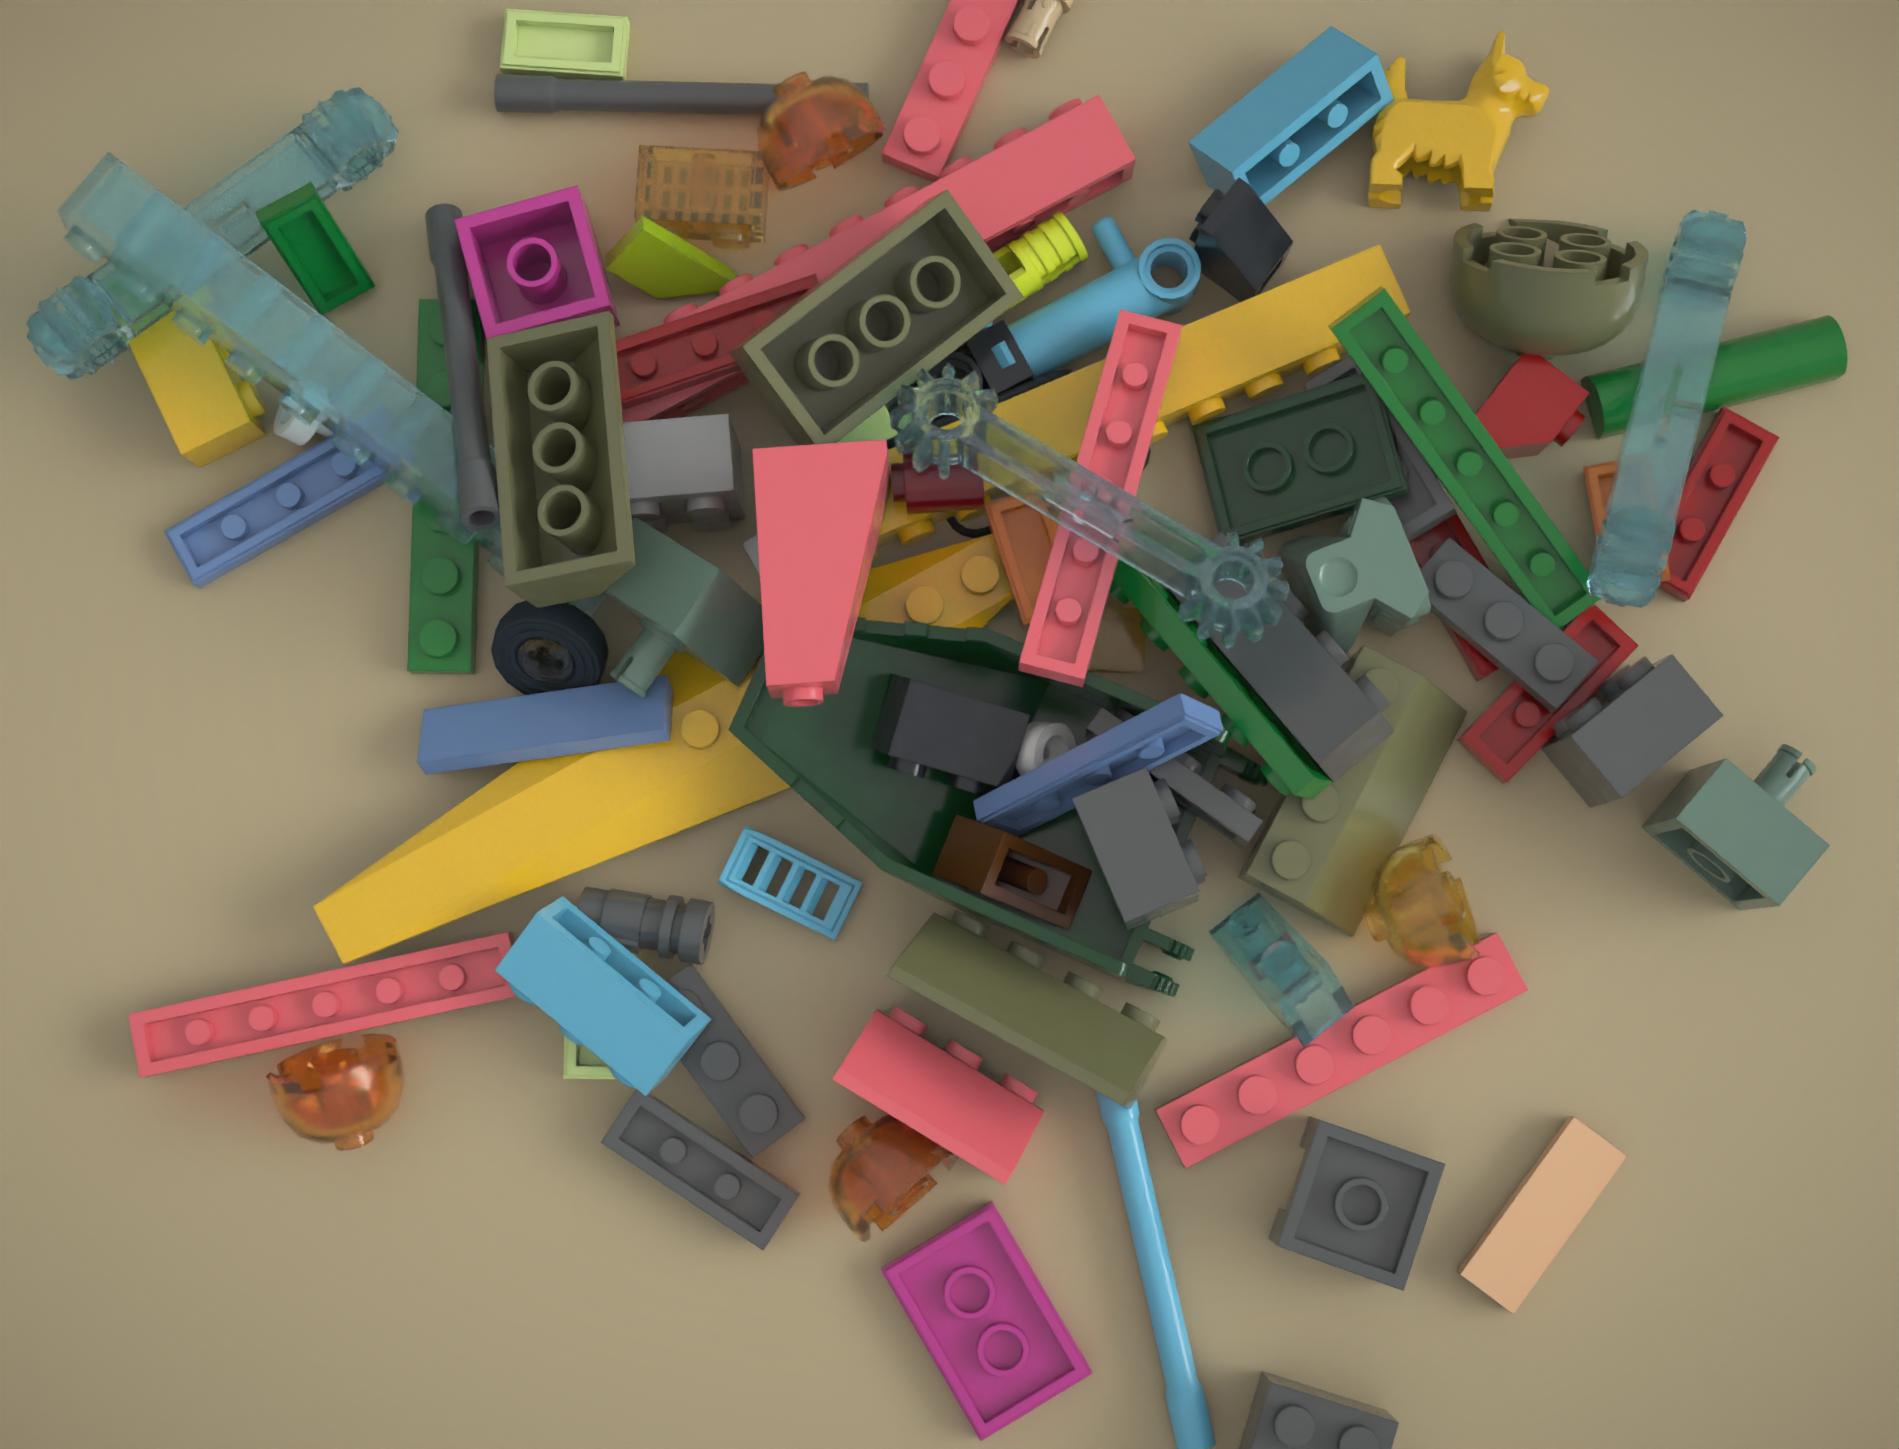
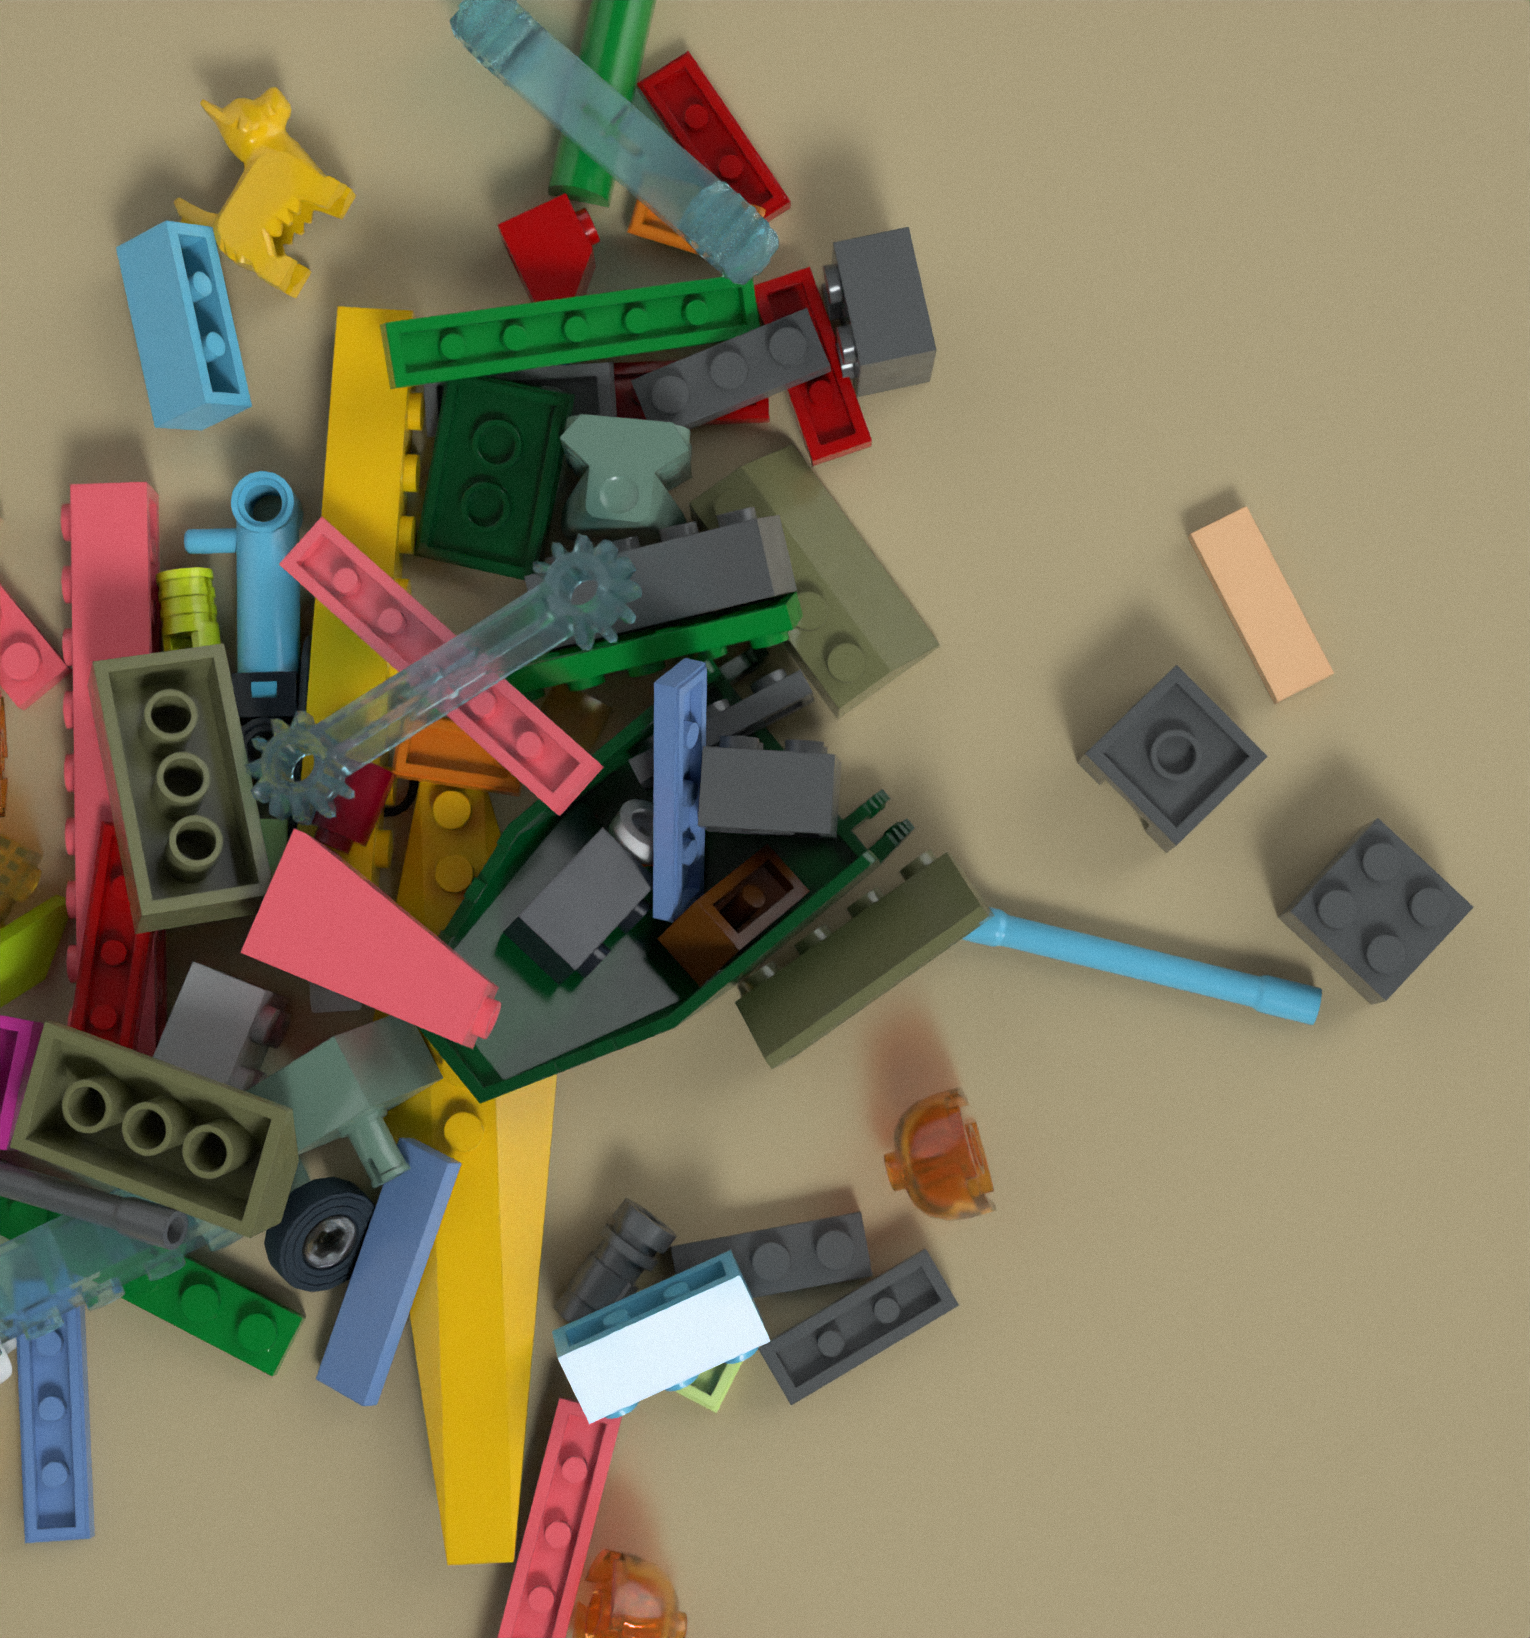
camera: 65 degrees left, 0 degrees up
(741, 859) = (598, 1150): medium azure slope -> none
(941, 1092) = (897, 1074): coral slope -> none
(986, 1321) = (1117, 1137): dark pink tile -> none
(1239, 241) = (270, 428): black slope -> none
(1282, 969) = (937, 720): clear light blue slope -> none
(1353, 1046) = (1033, 707): coral plate -> none
(1422, 907) = (944, 571): clear yellow cylinder -> none
(1539, 308) = (472, 197): olive cylinder -> none
(1739, 830) = (1013, 264): sand green brick -> none

